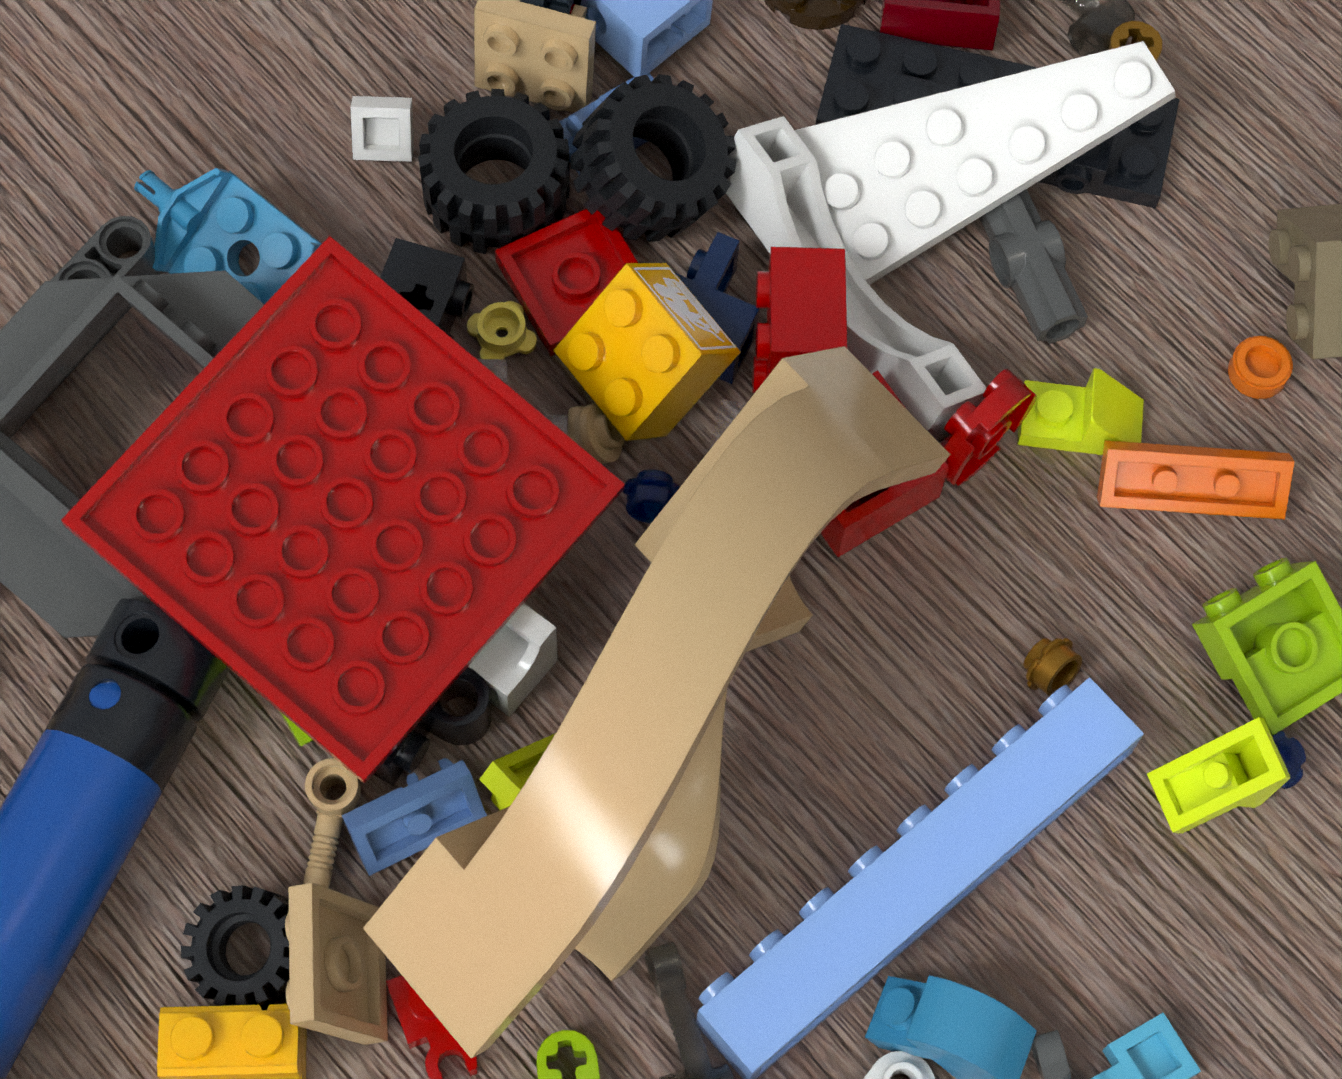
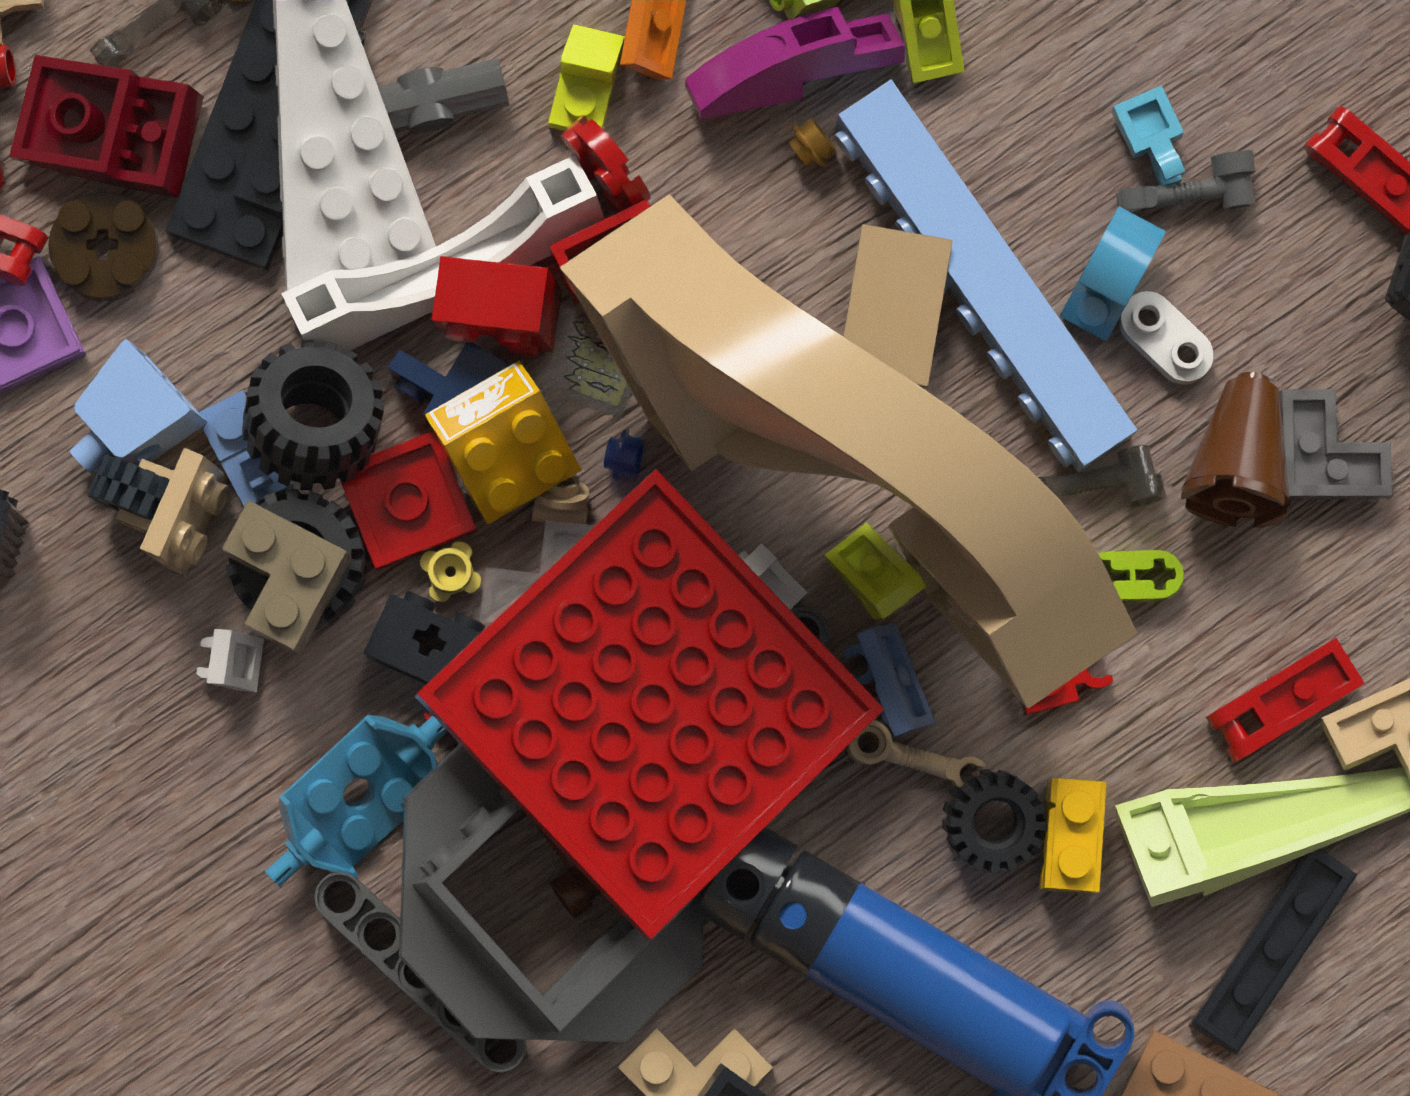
camera: 85 degrees left, 15 degrees up
(334, 966) = (1021, 747): tan plate -> none
(465, 140) = (300, 573): none -> dark tan brick
(871, 773) = (898, 298): none -> tan sticker
(1139, 604) = (778, 60): none -> magenta slope

